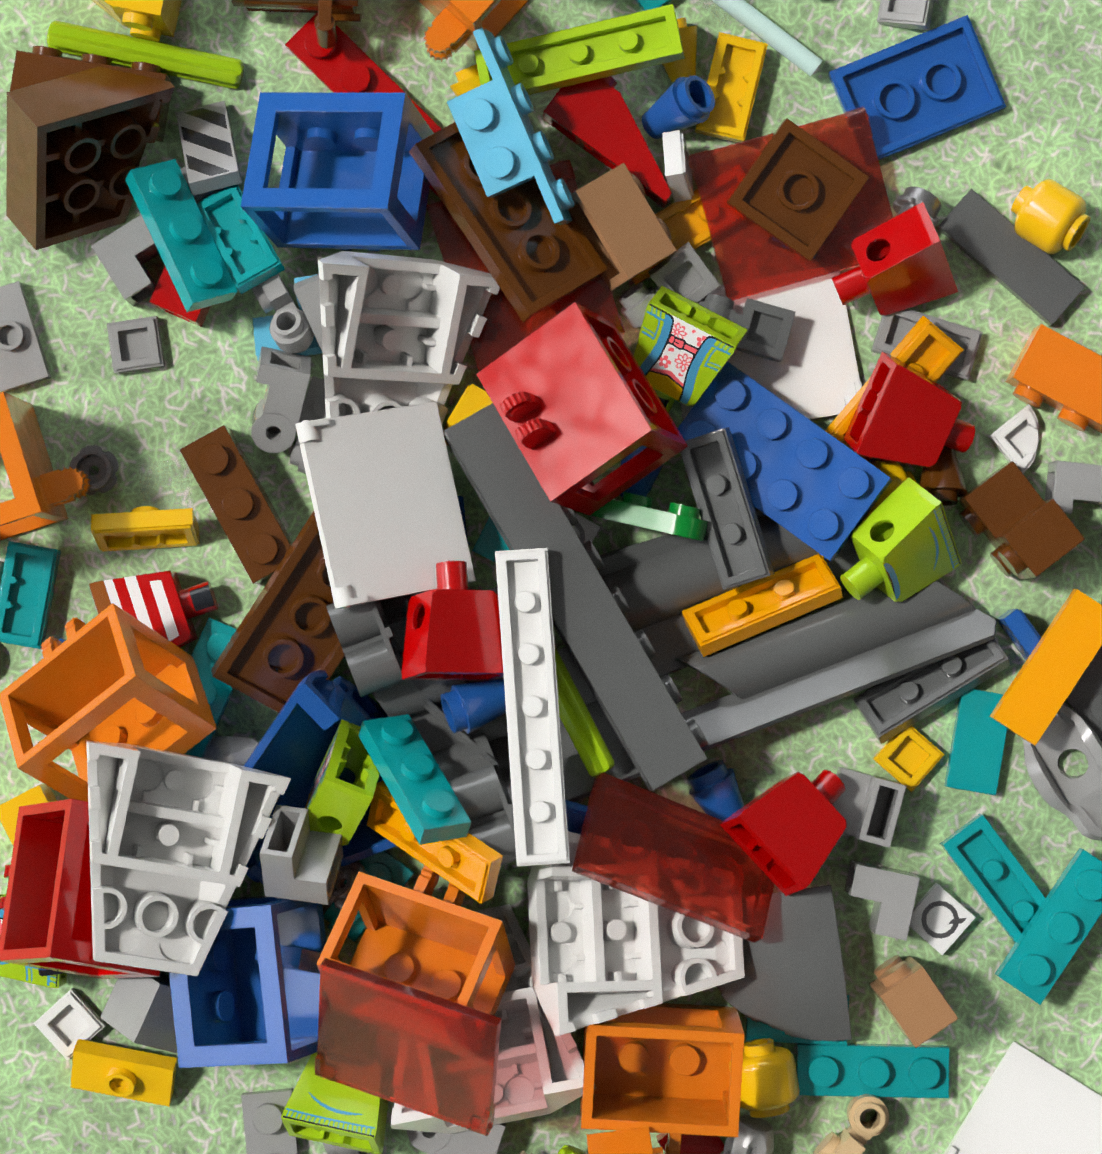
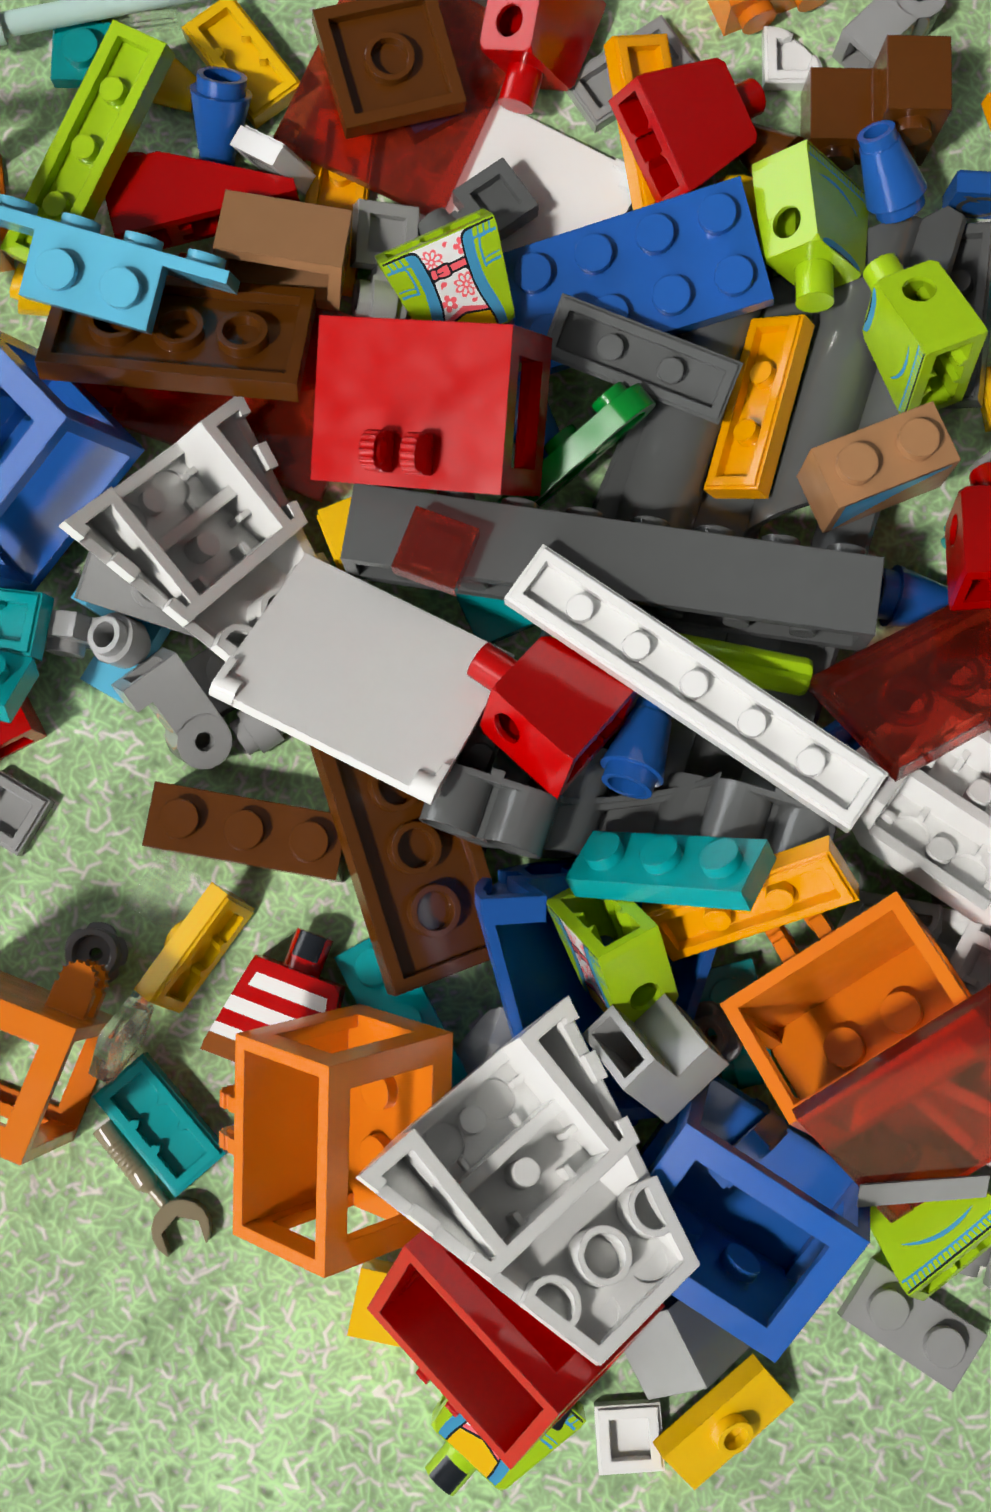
camera: 55 degrees left, 5 degrees down
(56, 530) = (121, 1038): none -> clear tile
(346, 1076) = (923, 1190): none -> light grey piece
(492, 486) = (435, 550): none -> clear red tile
(768, 710) = (877, 467): none -> medium nougat brick
(875, 668) = (920, 332): none -> lime torso
(975, 568) = (890, 175): none -> blue cone

